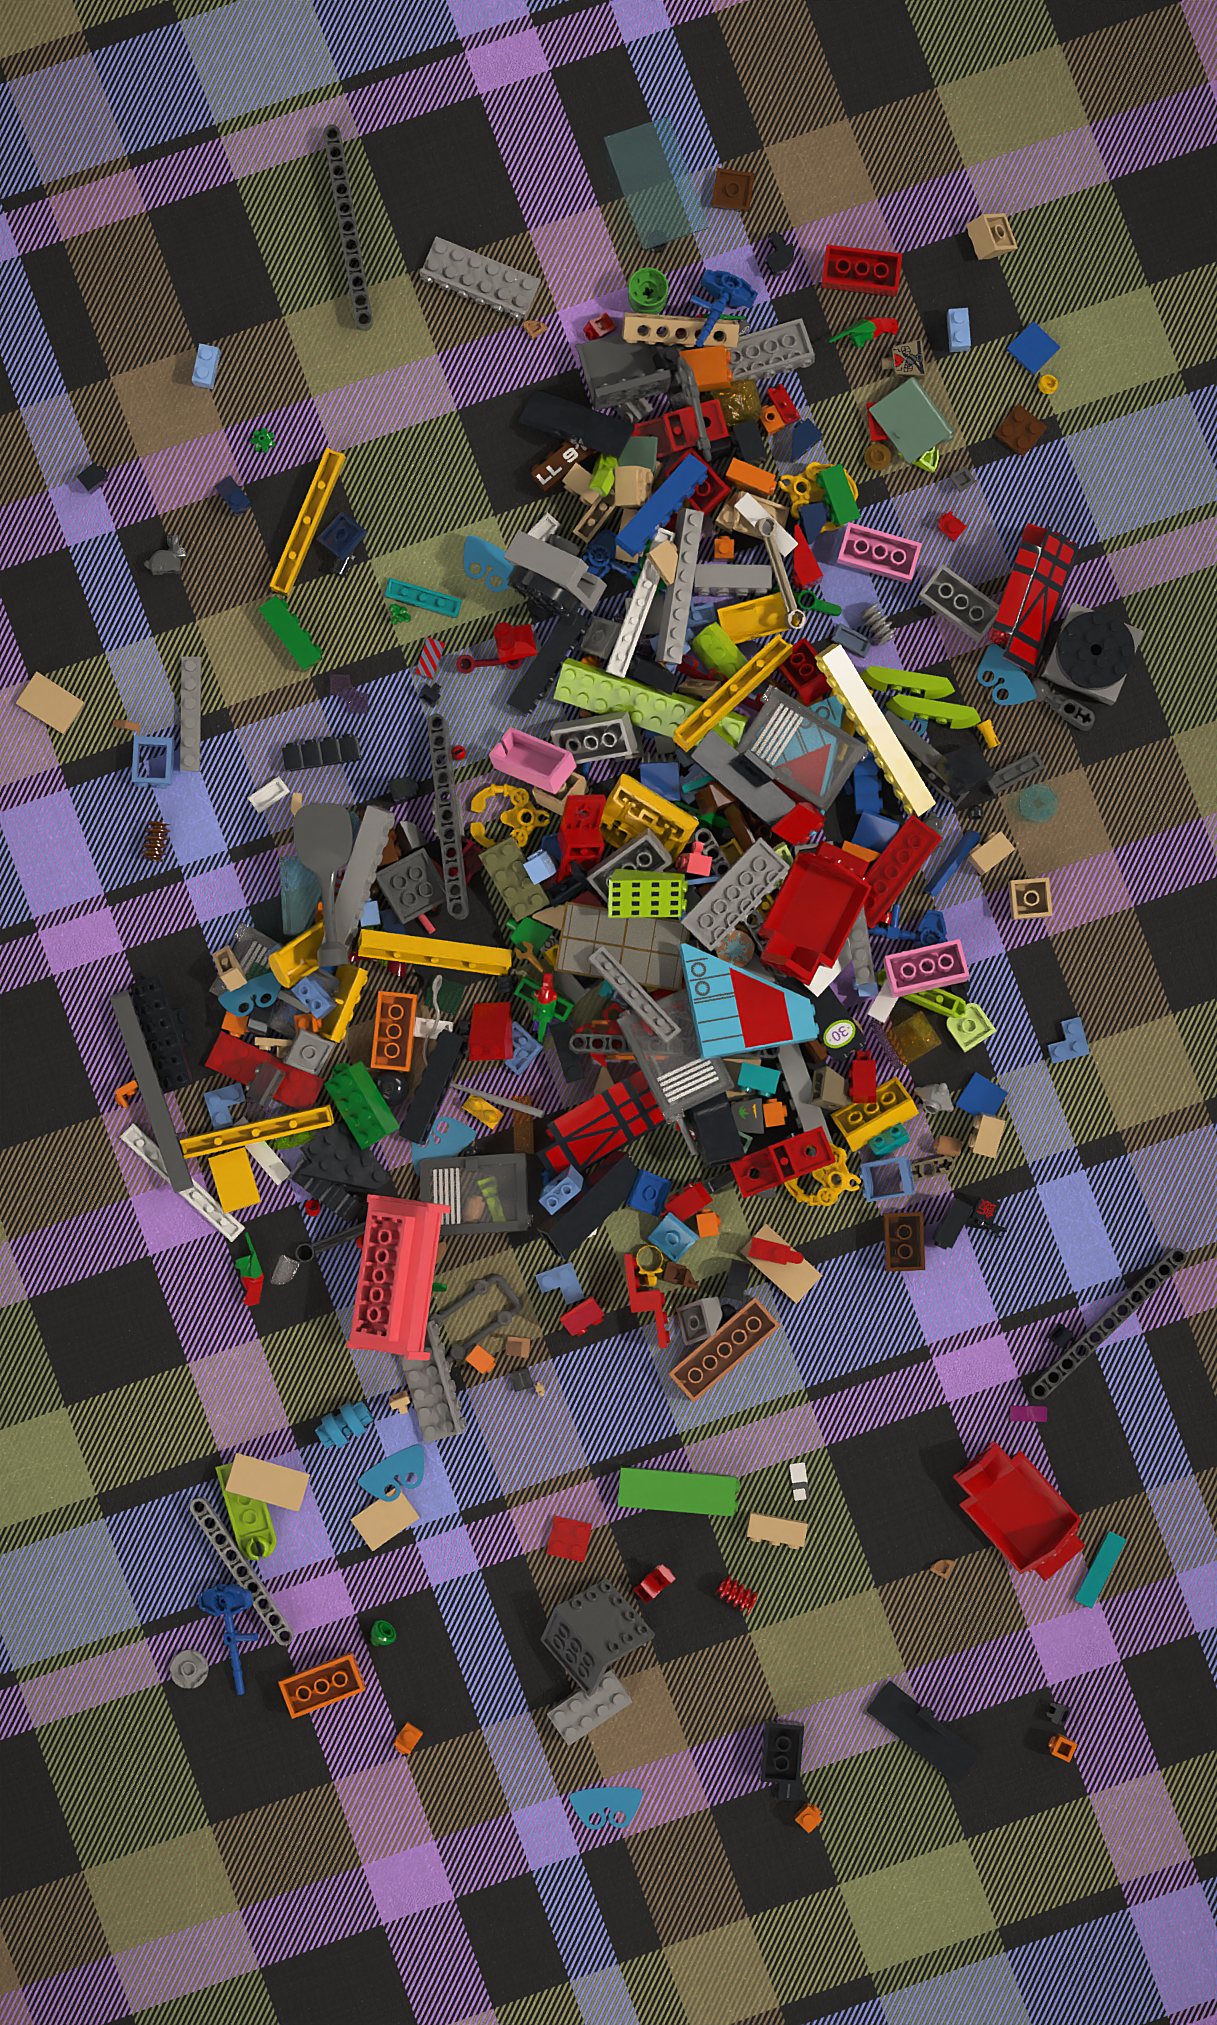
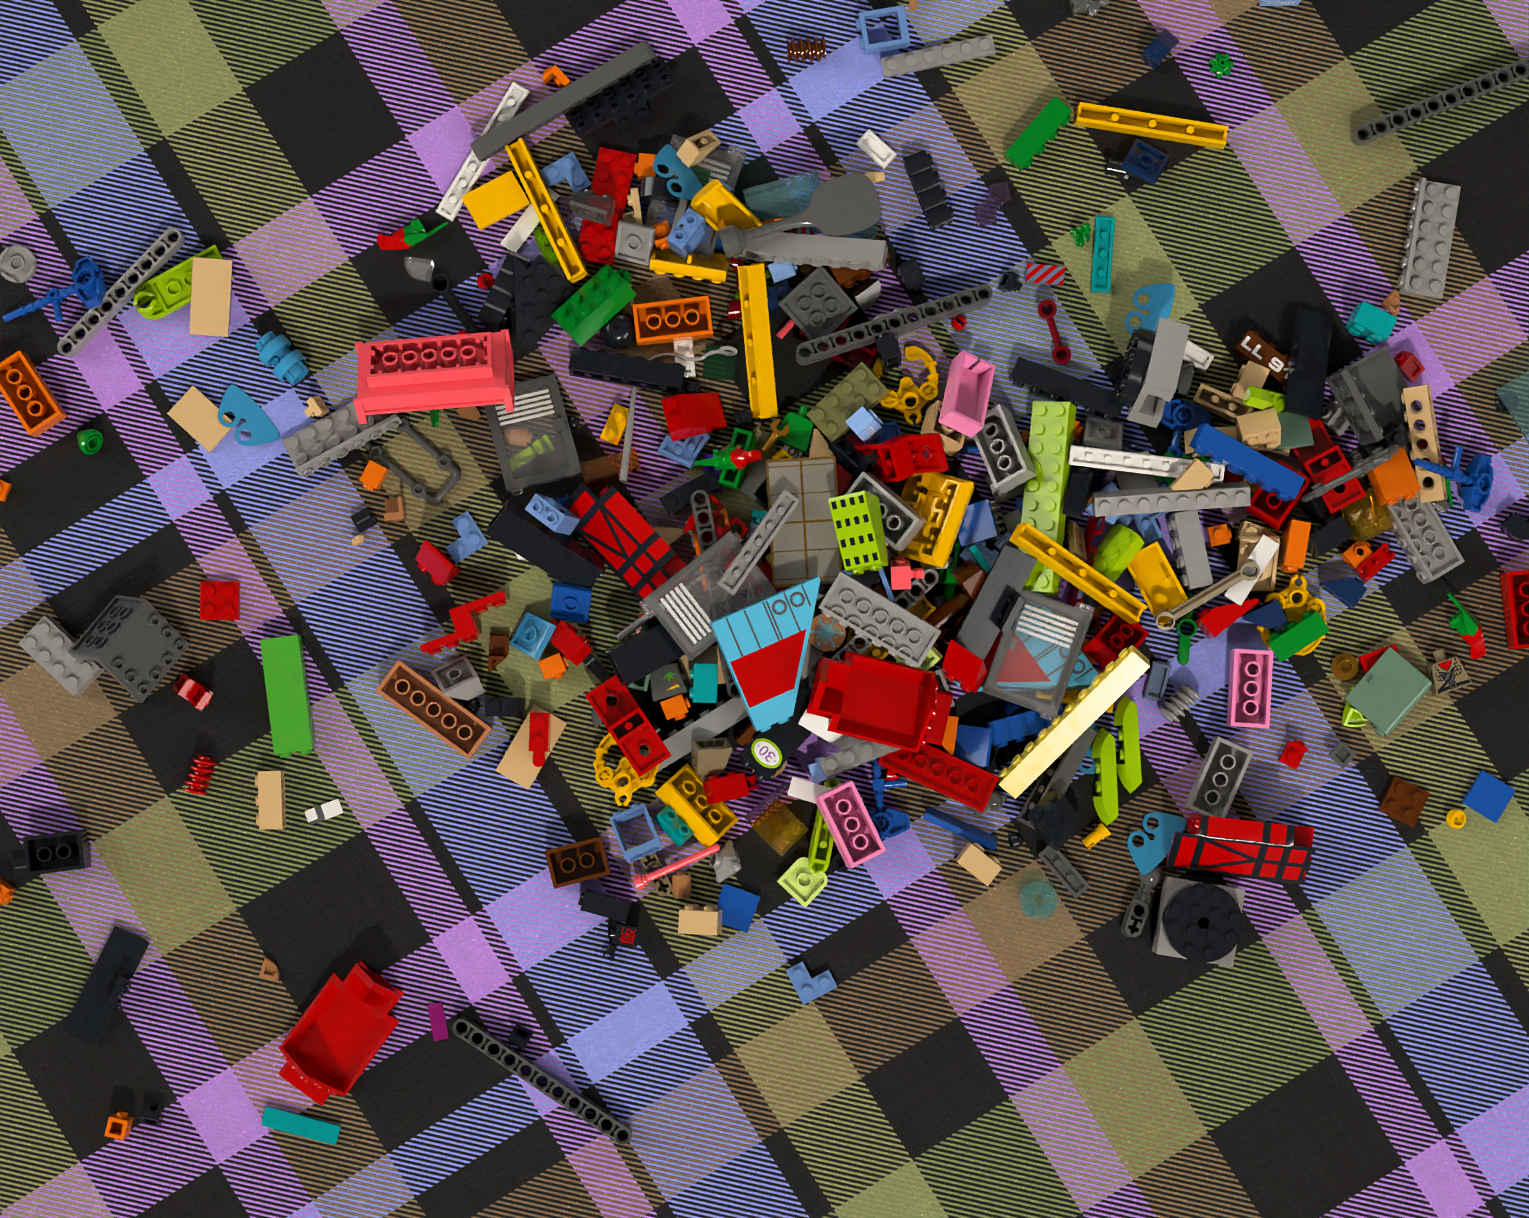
camera: 75 degrees right, 0 degrees up
(451, 1142) = (576, 401): dark azure piece -> none
(473, 828) = (888, 351): none -> black slope
(514, 641) = (1080, 351): red slope -> none
(551, 354) = (1370, 323): none -> teal brick
(648, 281) = (1465, 401): bright green wheel -> none
(651, 1279) = (487, 623): yellow piece -> none
(935, 1183) = (643, 880): none -> coral piece
(958, 330) = (1489, 718): light blue brick -> none
(1030, 898) = (942, 912): tan brick -> none

